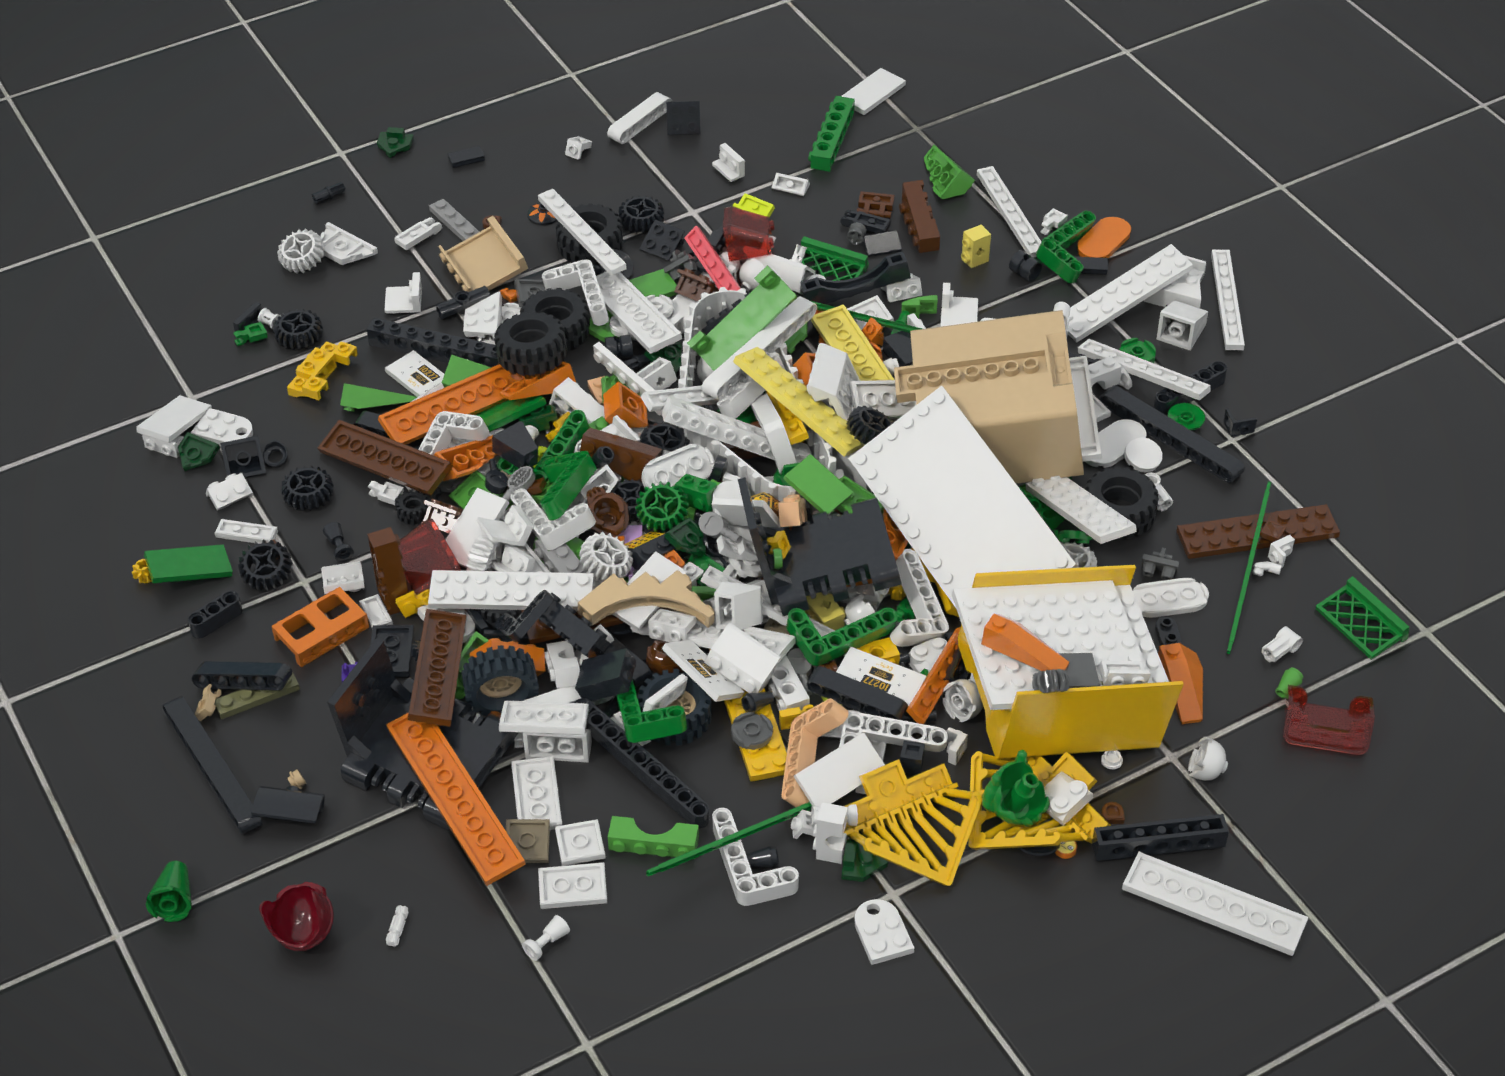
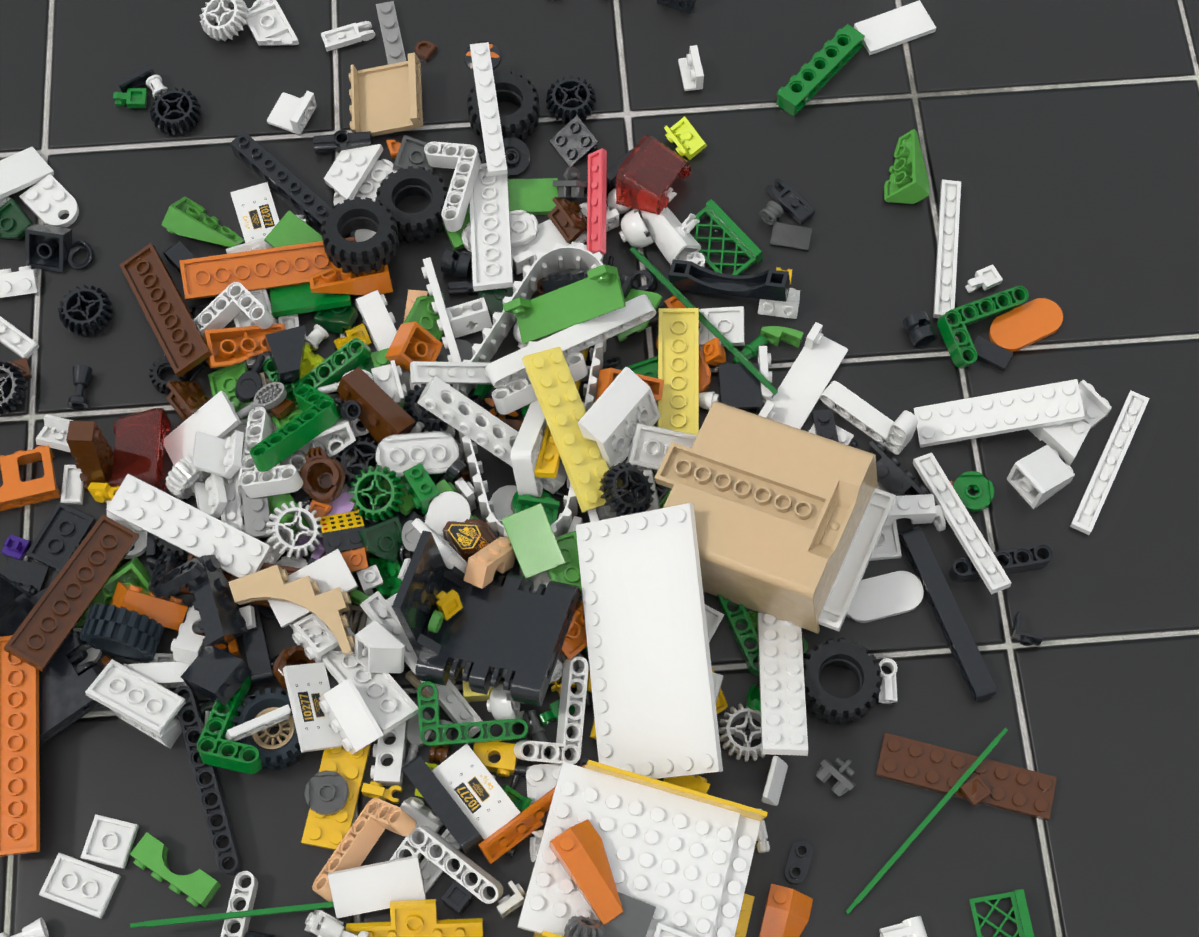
camera: 25 degrees right, 20 degrees up
(317, 367) = (167, 168): yellow bracket -> none
(386, 492) = (152, 346): white plate -> none
(530, 838) = (65, 816): dark tan tile -> none
(537, 790) = (103, 765): white tile -> none
(755, 701) = (347, 762): black cone -> none
(790, 184) = (742, 119): white slope -> none
(878, 201) = (815, 178): reddish brown plate -> none
(919, 217) = (844, 221): reddish brown wedge -> none
(976, 246) = (879, 285): light yellow brick -> none
(1143, 454) = (901, 626): white tile -> none
(1171, 597) = (825, 816): white tile -> none
(1187, 415) = (977, 590): green dish -> none
(1260, 567) = (943, 824): white arm -> none
(1281, 549) = (975, 813): white bracket -> none

